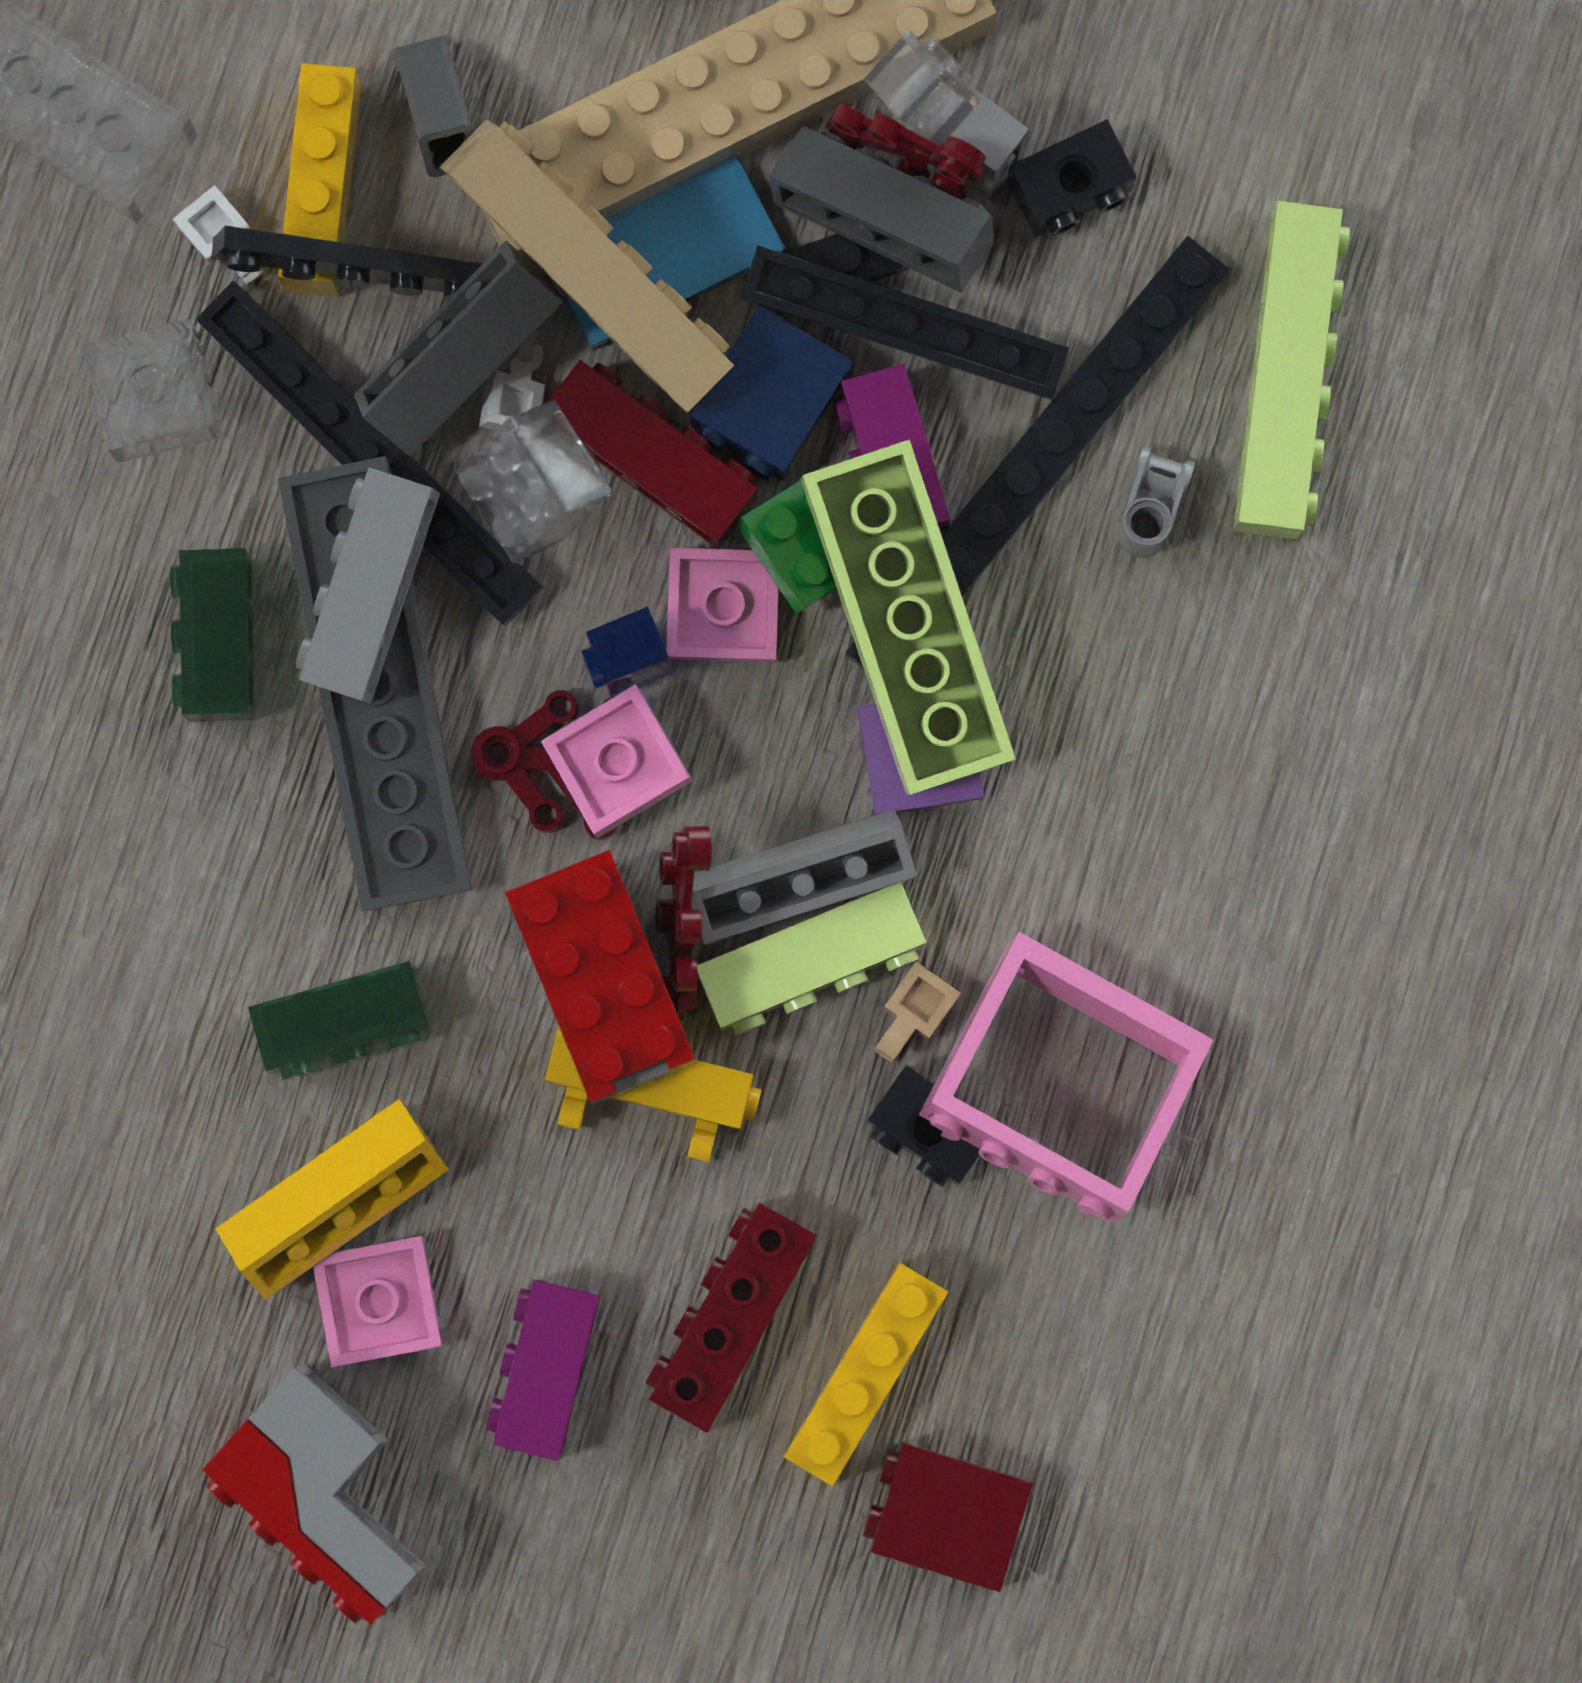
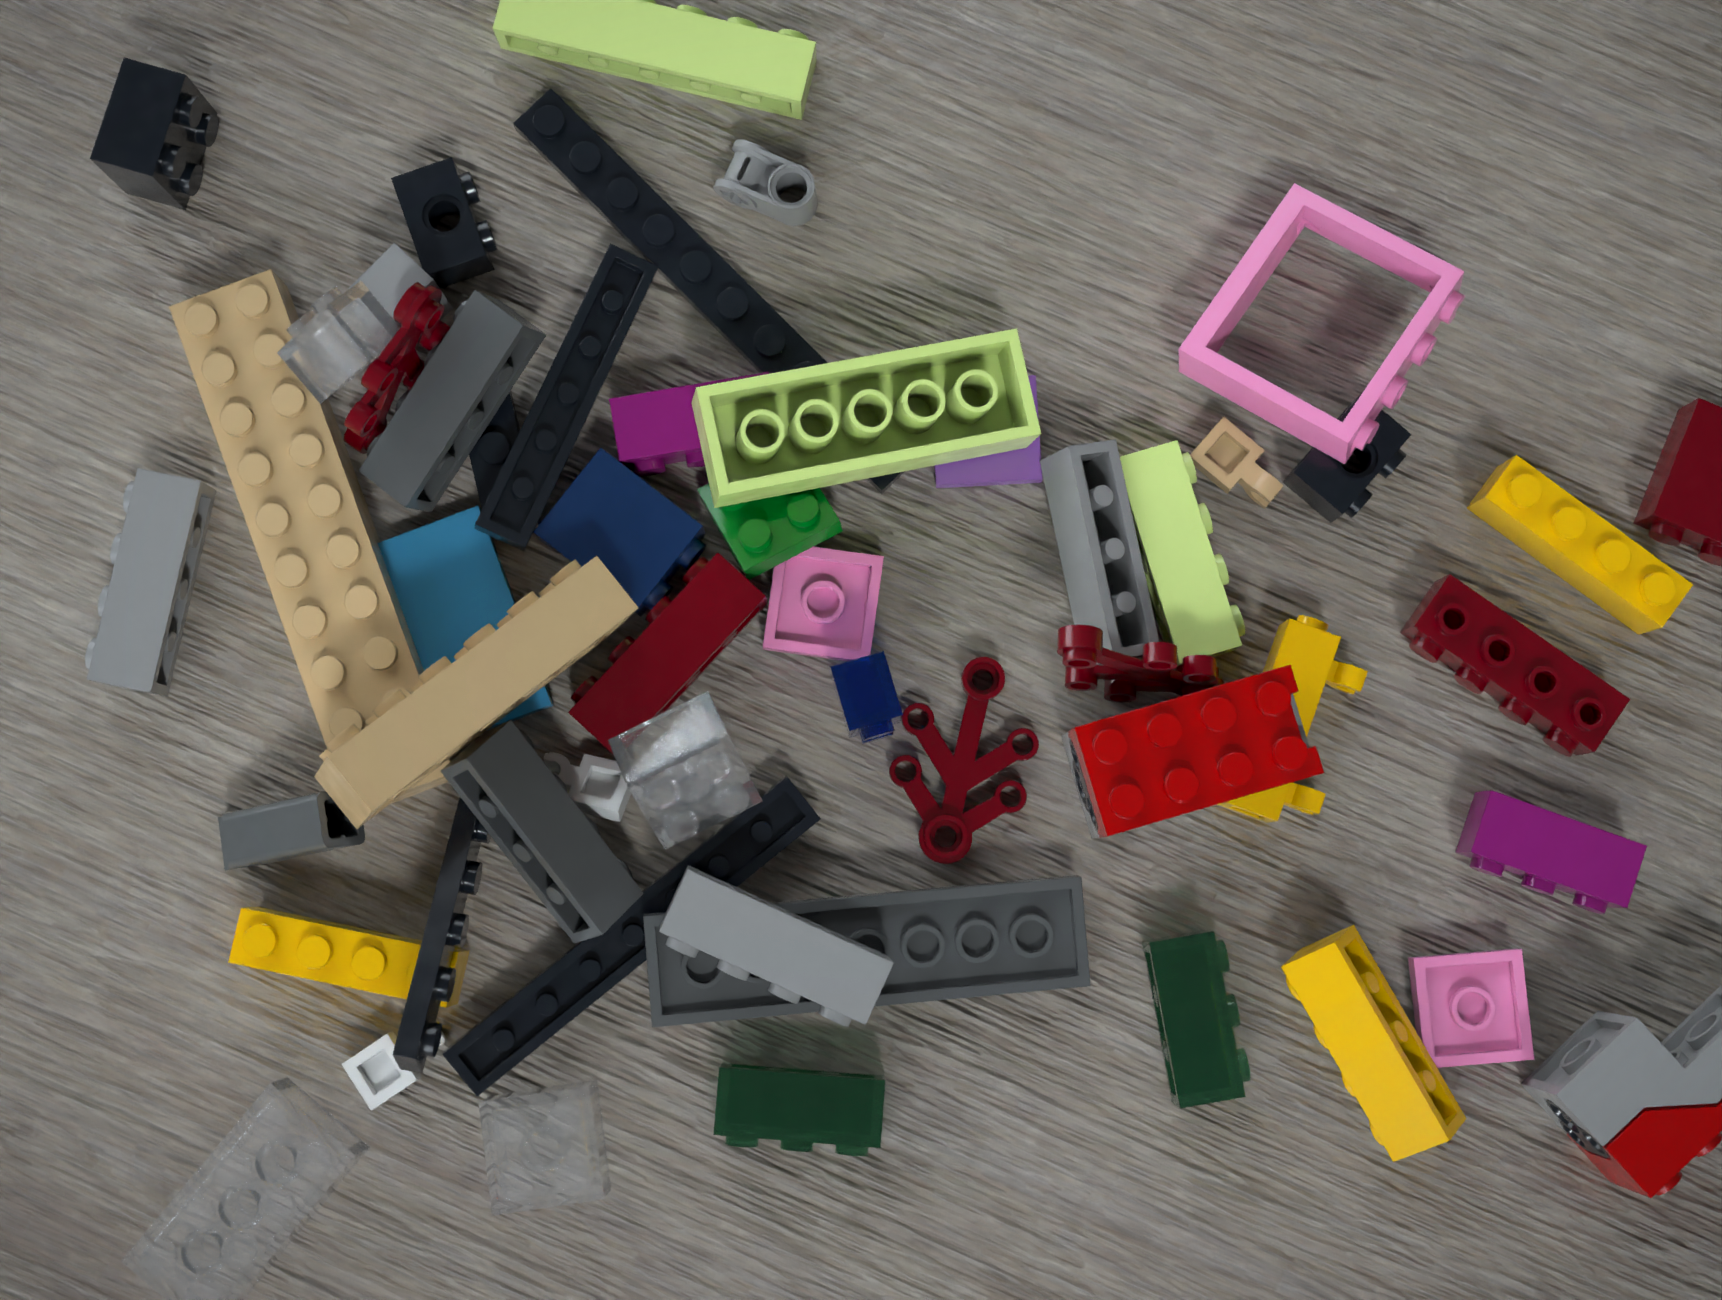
camera: 85 degrees left, 0 degrees up
(616, 761) = (970, 719): bright pink plate -> none

